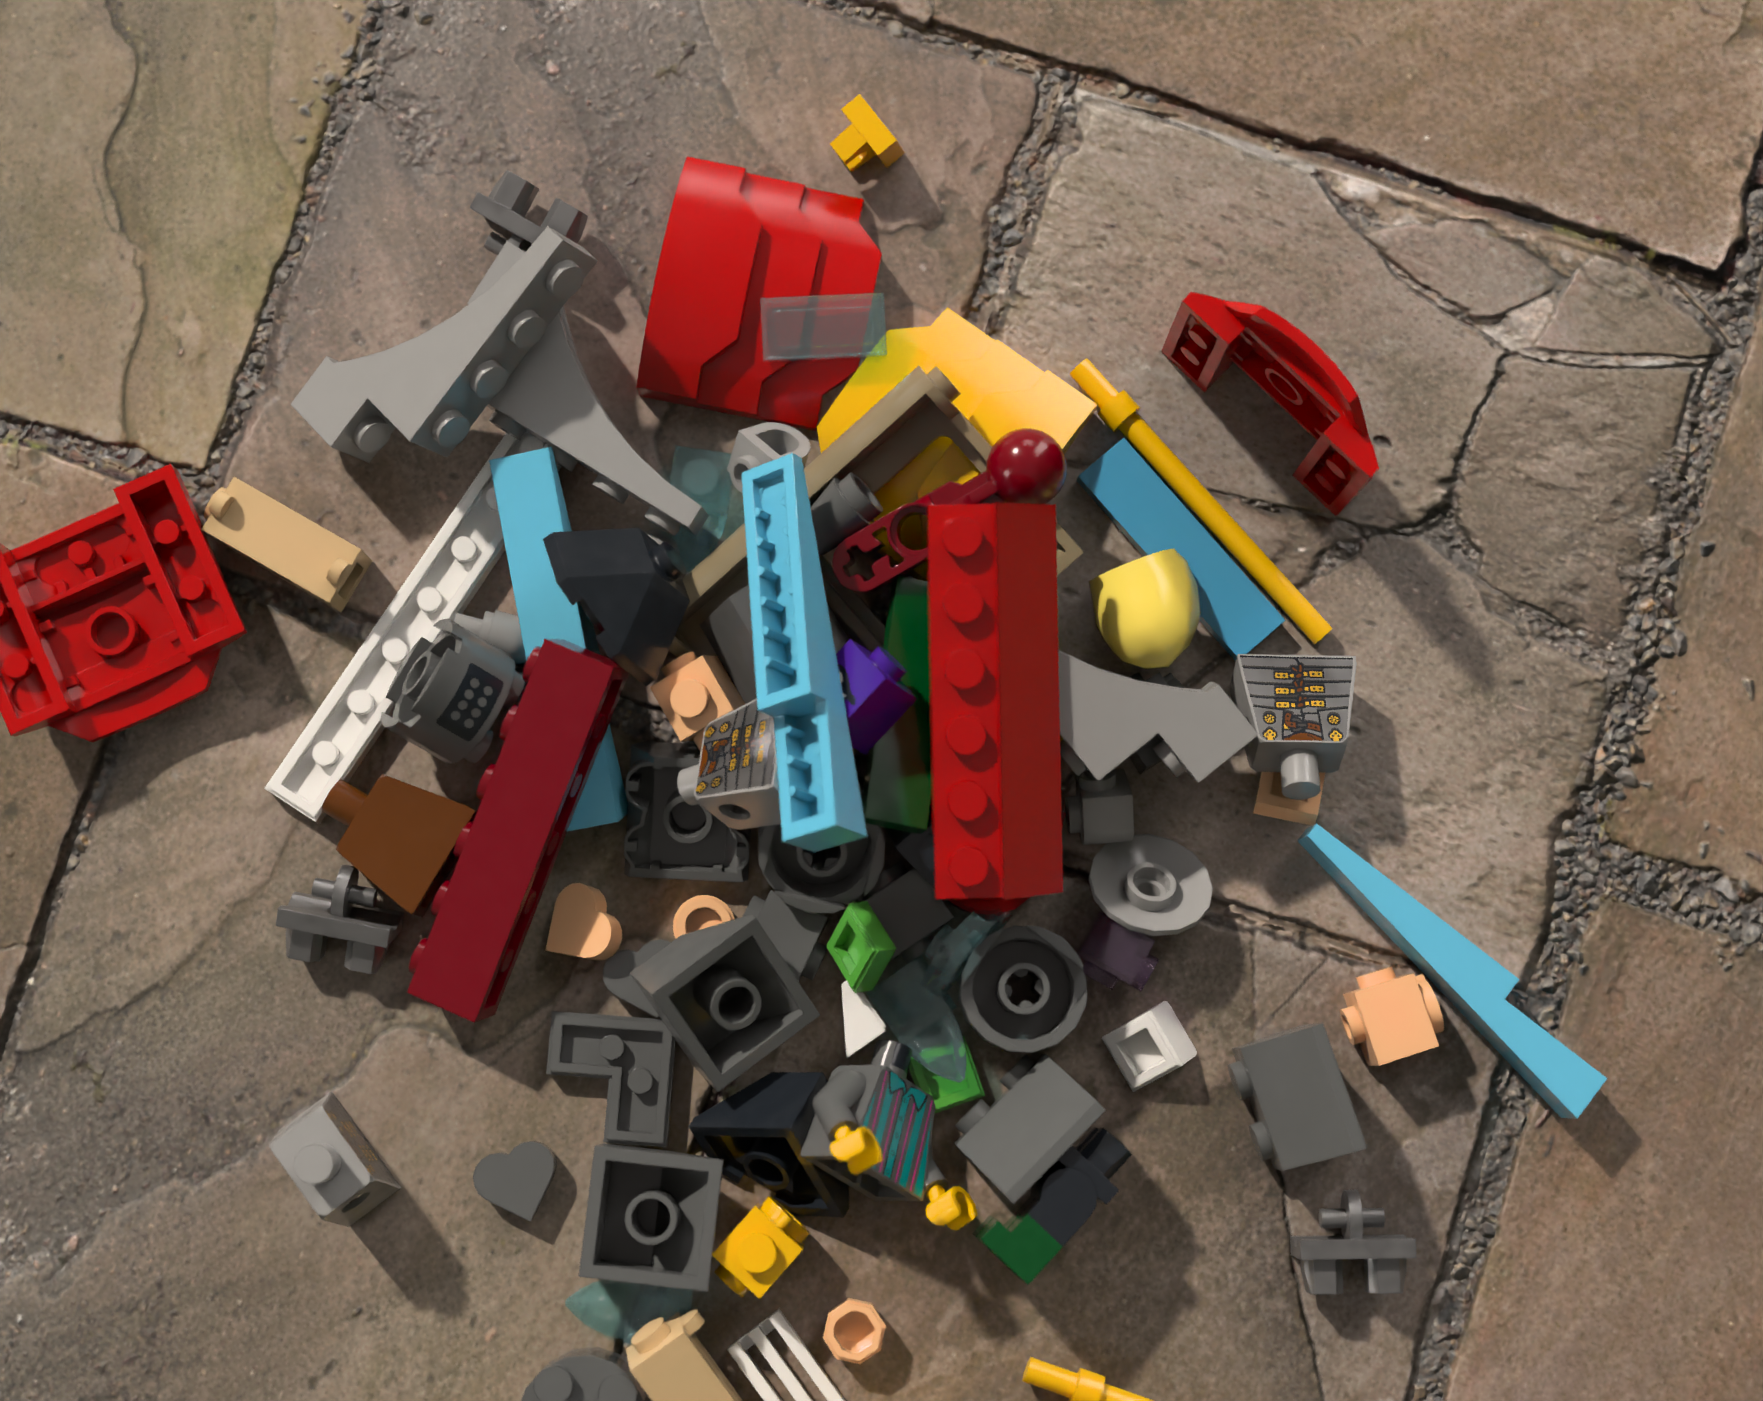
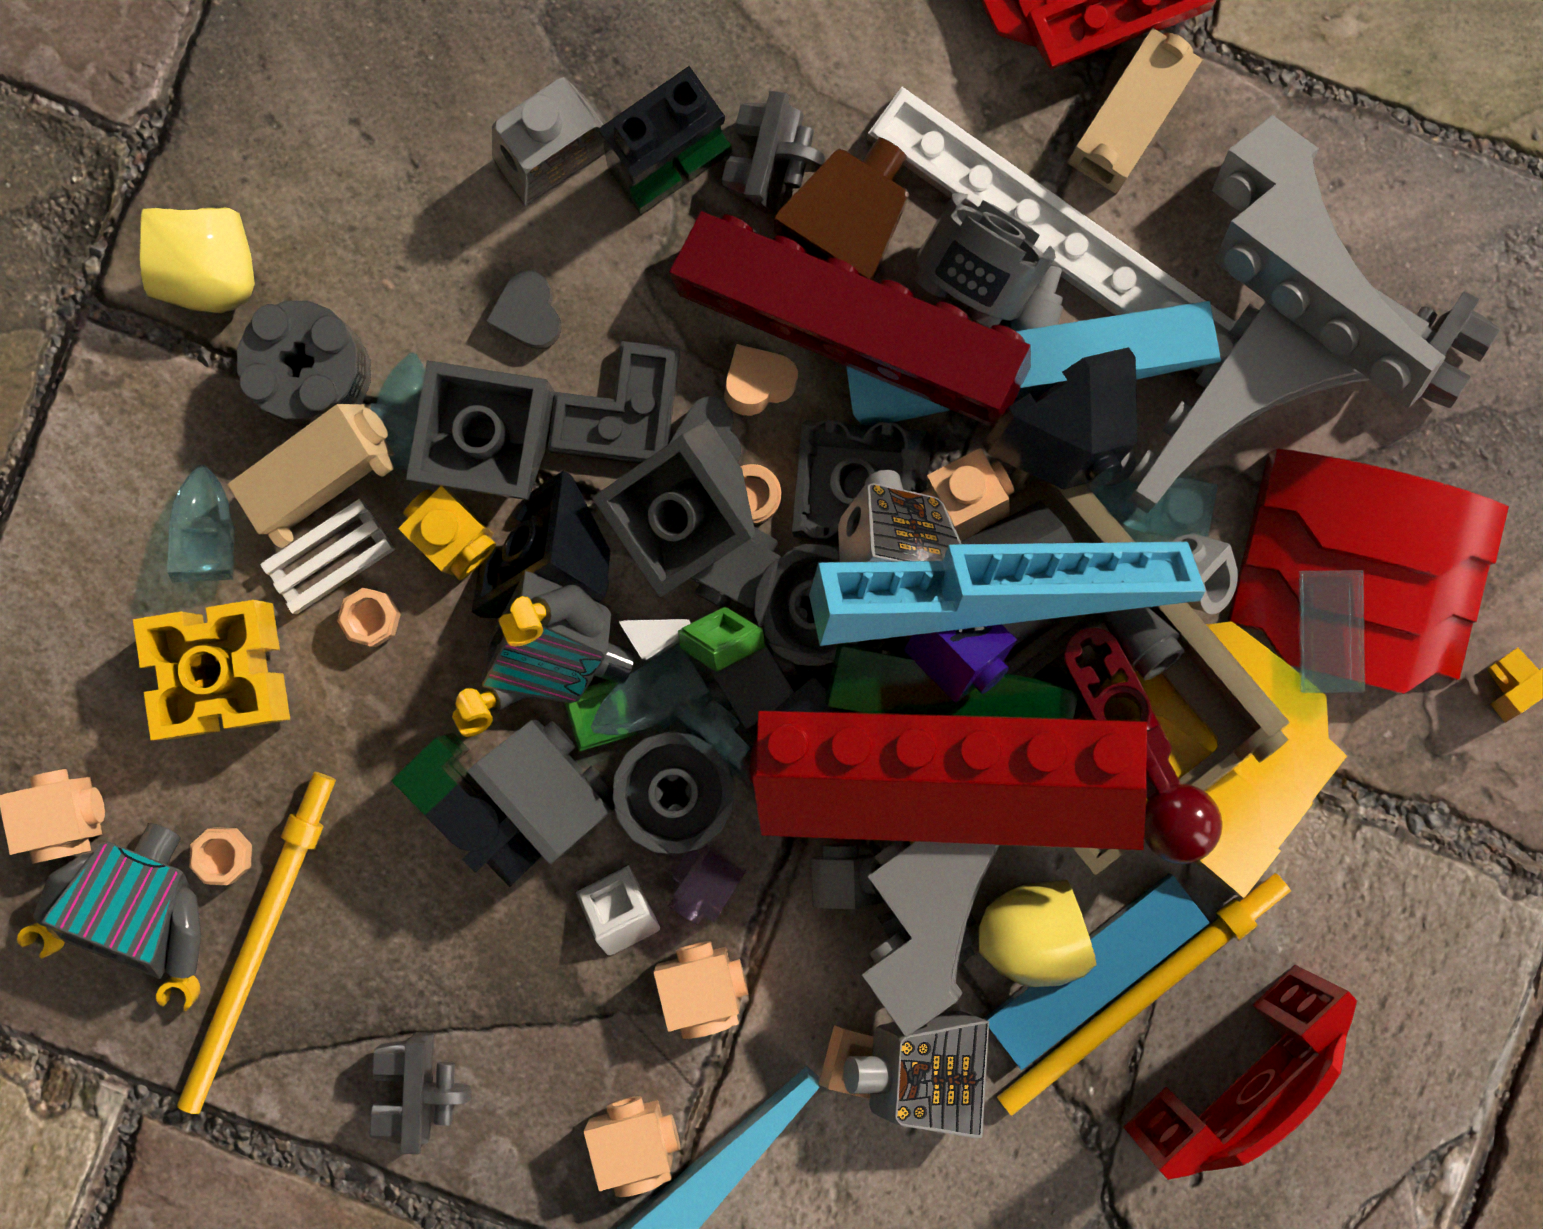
camera: 95 degrees right, 5 degrees up
(319, 1029) = (667, 124): none -> black hips
(1151, 885) = (786, 925): light grey dish -> none
(1226, 953) = (700, 990): none -> light nougat brick
(1296, 1098) = (557, 1049): dark grey slope -> none

